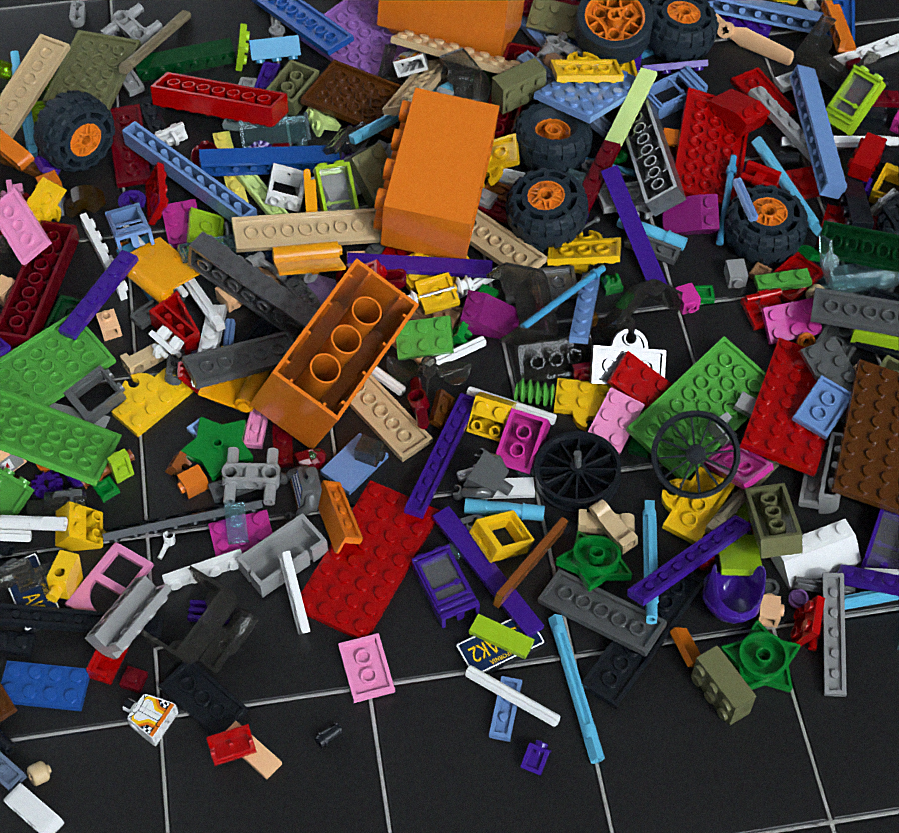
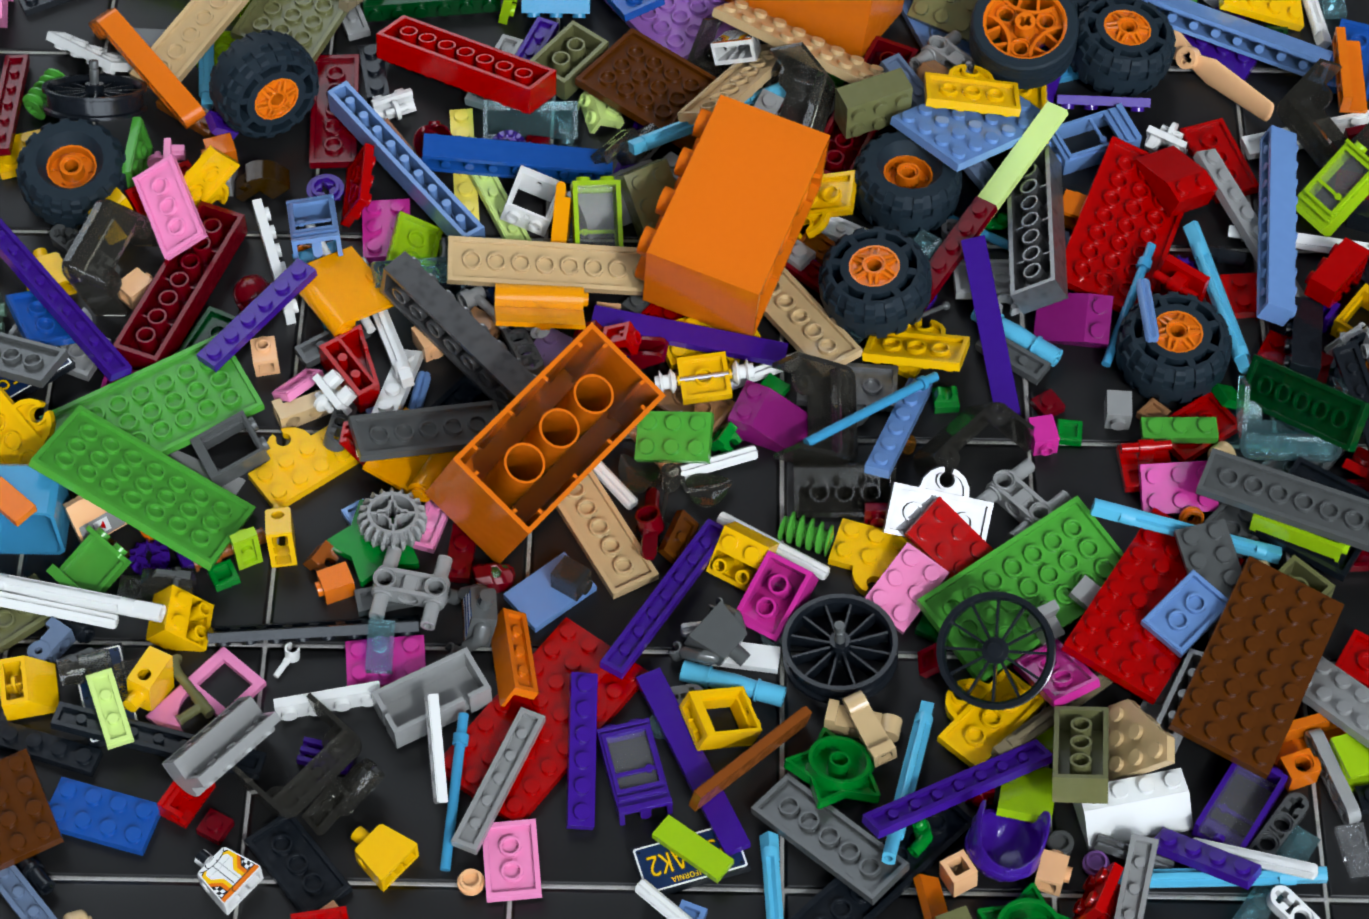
camera: 10 degrees right, 0 degrees up
(37, 602) = (109, 708): none -> yellowish green tile
(88, 278) = (248, 289): none -> dark red cap
(106, 587) = (201, 704): none -> olive piece
(136, 342) = (296, 385): none -> bright pink tile
(143, 445) = (277, 524): none -> yellow torso
(237, 421) = (376, 519): none -> light grey gear
(268, 678) = (383, 853): none -> yellow torso
(310, 585) = (459, 741): none -> dark azure bar
(338, 689) = (471, 882): none -> light nougat plate
(345, 609) = (498, 781): none -> light grey plate
(403, 577) = (581, 751): none -> dark purple plate
(644, 470) = (928, 661): none -> dark red plate
(670, 599) = (923, 838): none -> green arm
(681, 345) = (1019, 498): none -> light grey piece
(684, 276) = (1047, 404): none -> dark red plate
(702, 622) = (958, 873): none -> light nougat brick
(722, 84) = (1164, 137): none -> white hips
(794, 348) = (1165, 525): none -> medium azure piece
(812, 504) = (1136, 742): none -> tan plate

